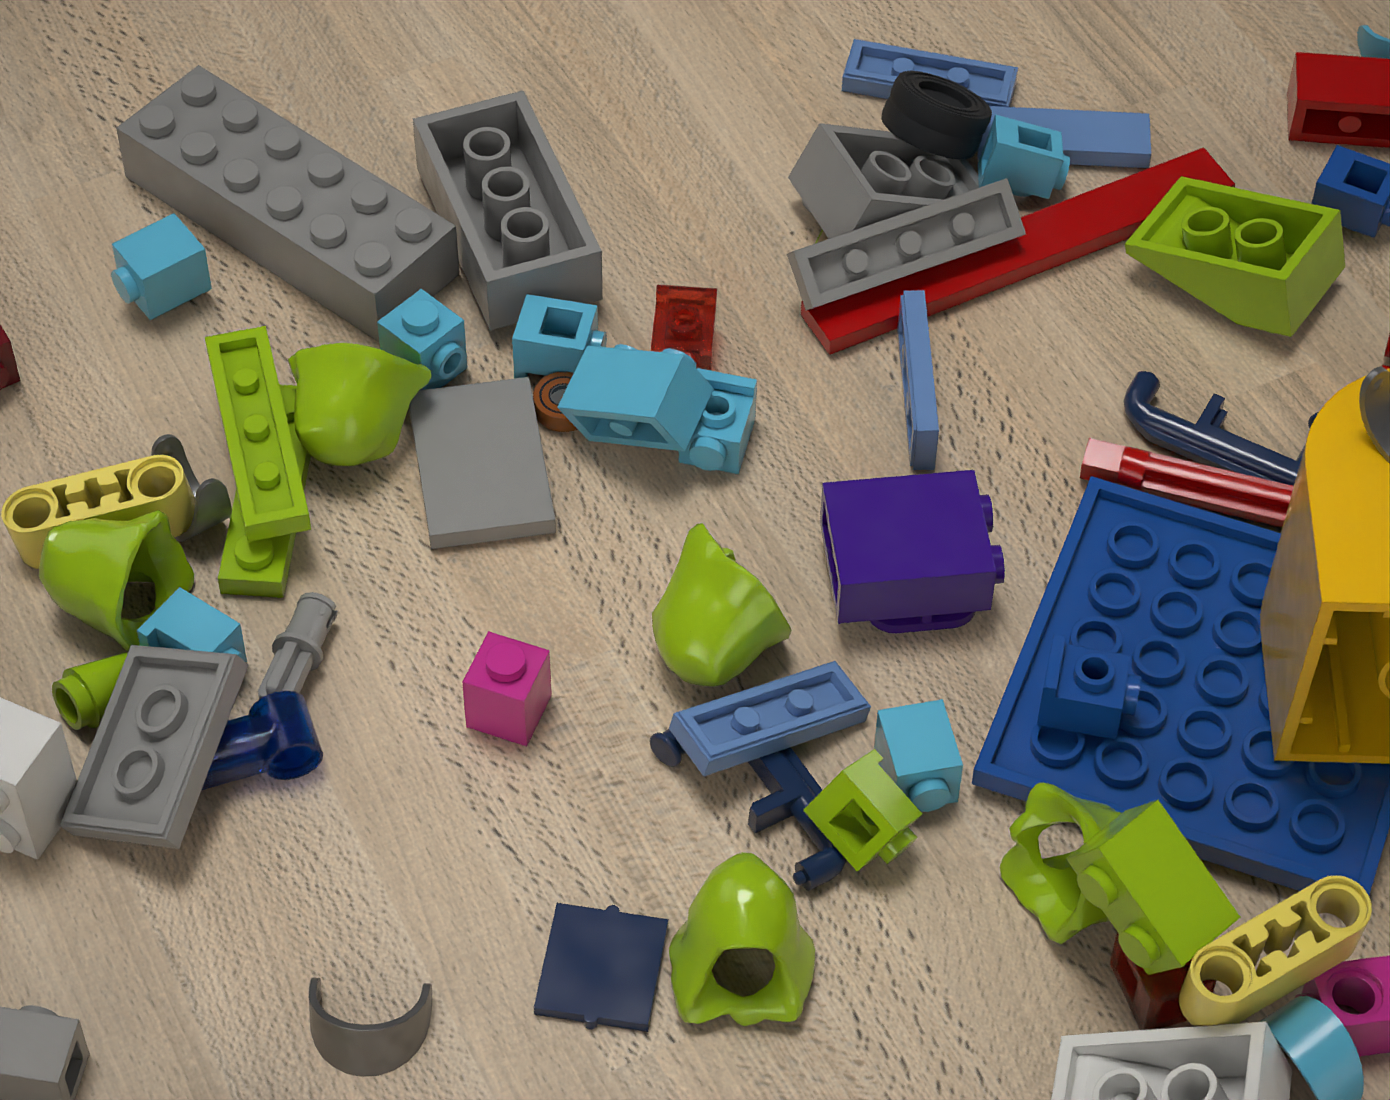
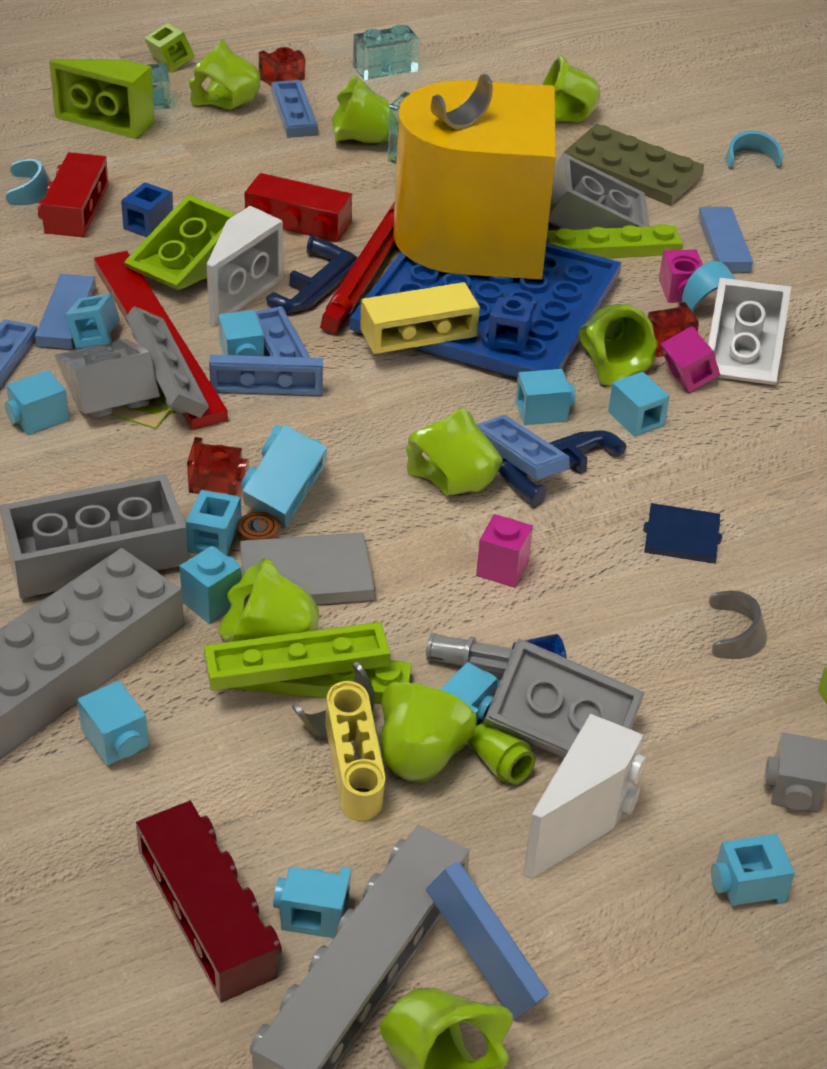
camera: 90 degrees left, 10 degrees down
(739, 909) = (676, 463): lime piece -> none
(798, 111) = (37, 402): none -> medium azure brick
(865, 813) = (586, 411): lime brick -> none
(910, 550) = (406, 379): dark purple brick -> none
(919, 902) = (638, 404): none -> medium azure brick
(936, 115) = (51, 343): black tyre -> none
(1007, 341) = (240, 334): none -> medium azure brick
(1027, 405) = (279, 334): none -> medium blue tile
(1058, 991) = (690, 359): none -> dark pink brick
(1071, 552) = (419, 317): none -> light yellow brick
(1152, 888) = (658, 292): lime brick -> none
(1182, 307) = (244, 261): none -> white slope
(1314, 951) = (681, 271): light yellow beam -> none

